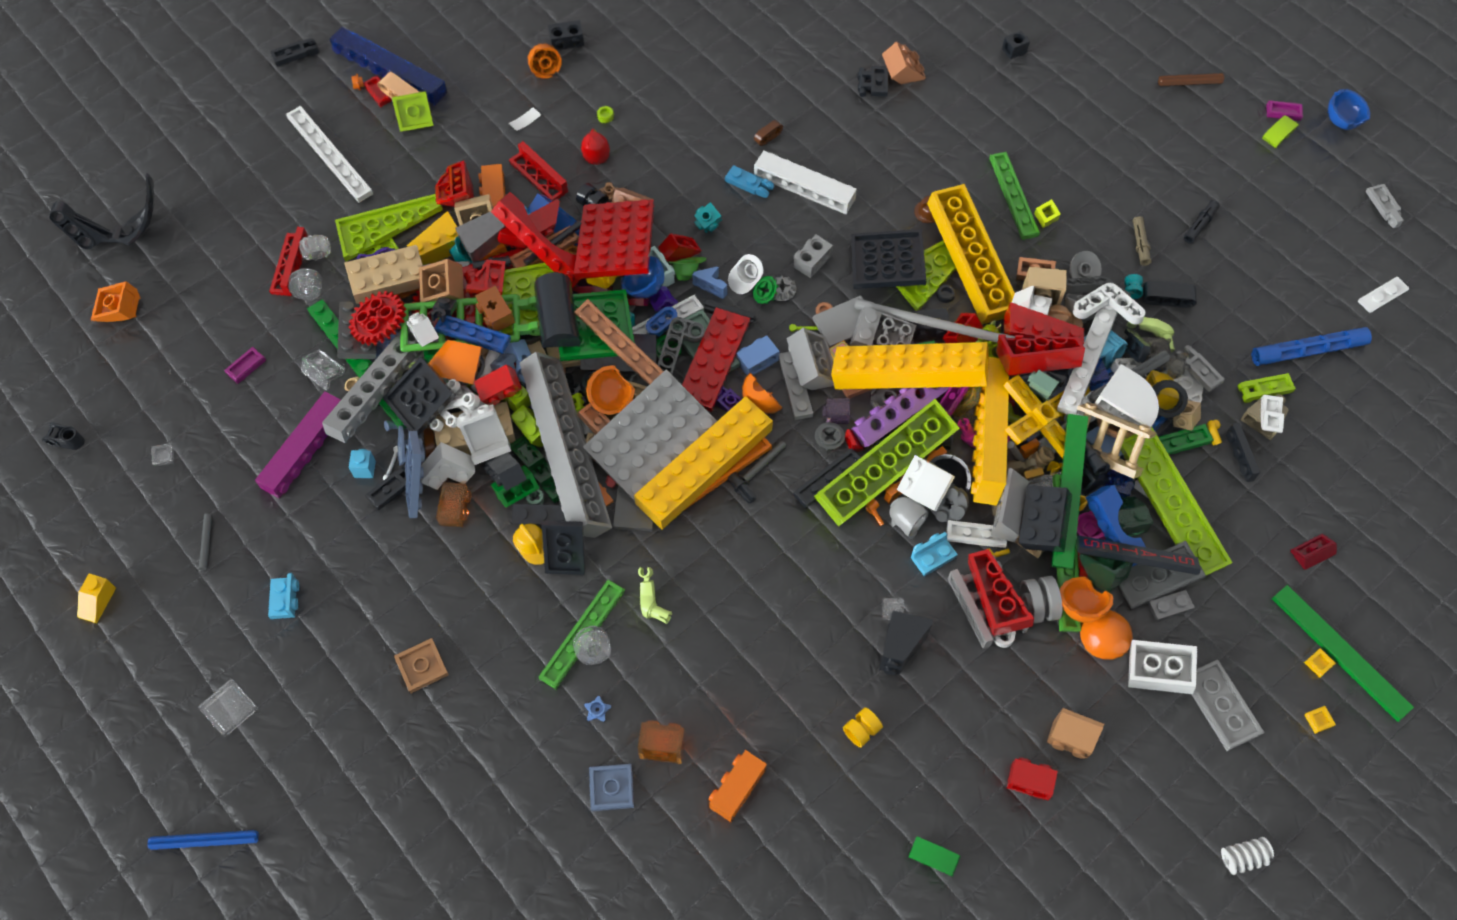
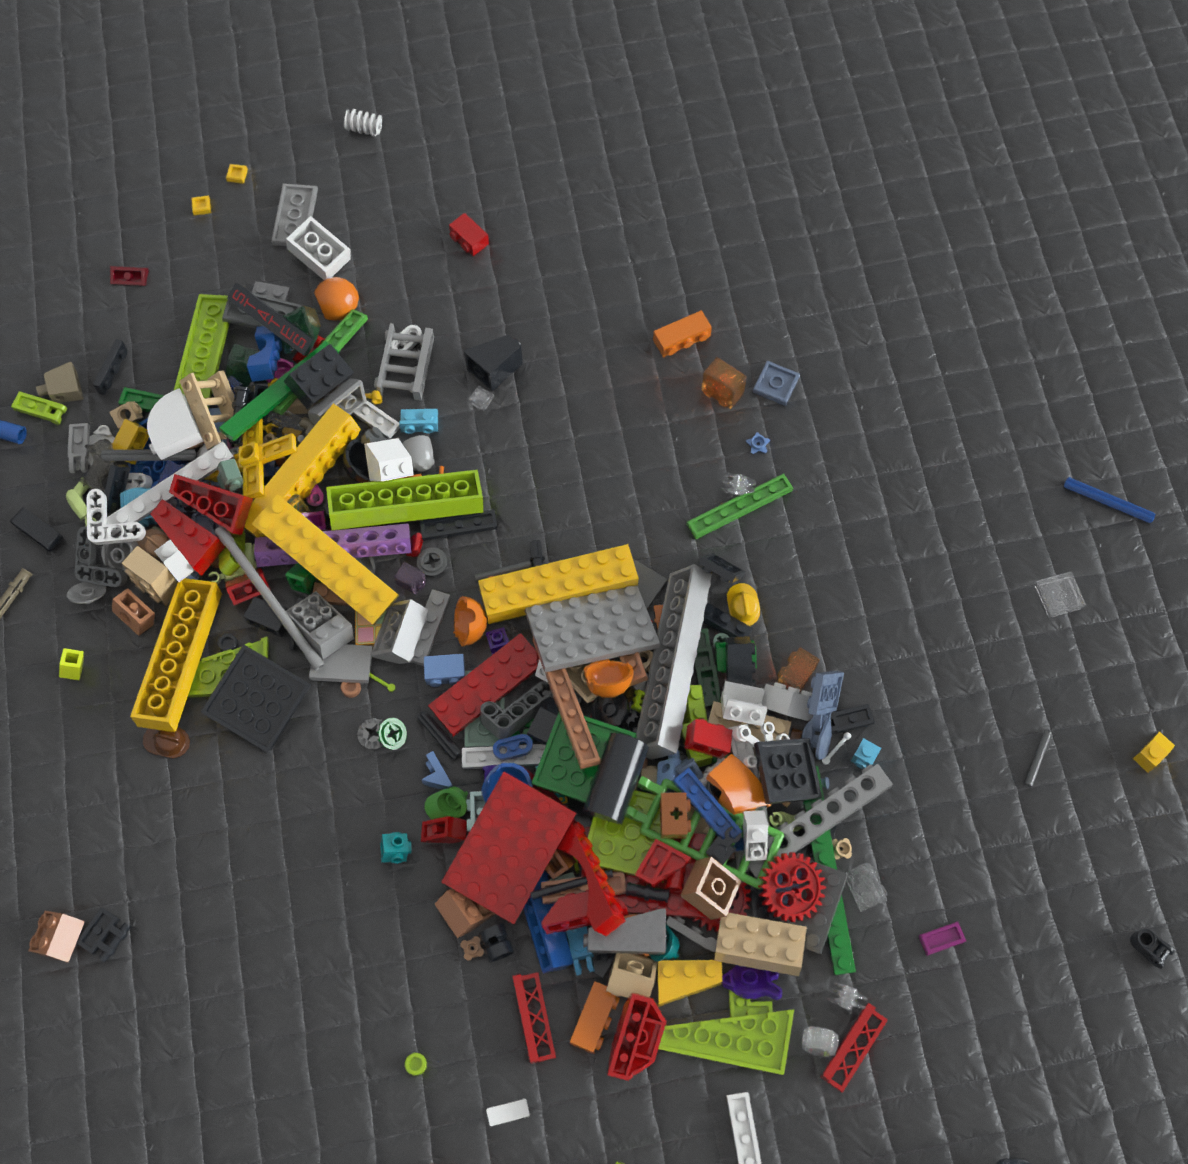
camera: 150 degrees left, 5 degrees up
(116, 303) = (1062, 1090): orange slope -> none
(162, 454) = (1055, 872): clear plate -> none
(283, 597) = (983, 666): medium azure bracket -> none
(297, 449) = (914, 808): magenta brick -> none
(421, 665) = (885, 545): medium nougat plate -> none
(595, 148) = (455, 1010): red piece -> none
(648, 599) = (673, 499): yellowish green arm -> none
(745, 274) = (398, 759): white piece -> none
(748, 182) = (323, 880): dark azure hinge -> none
(768, 132) = (261, 927): reddish brown beam -> none
(805, 182) = (268, 841): white brick -> none
(811, 260) = (320, 742): light grey brick -> none
(860, 729) = (572, 324): yellow wheel -> none
(934, 856) = (572, 223): green slope -> none
(999, 600) = (401, 345): red wedge -> none
(1014, 195) = (78, 714): bright green tile -> none
(1042, 598) = (367, 335): light grey wheel -> none
(1074, 733) = (417, 243): medium nougat slope -> none
(1083, 602) = (338, 310): orange cylinder -> none
(1133, 285) = (60, 553): teal wheel -> none
(1183, 398) = (134, 418): black tyre -> none
(1212, 427) = (113, 401): yellow arm -> none
(1271, 413) = (65, 371): white slope -> none
(1343, 653) = (179, 204): green tile -> none

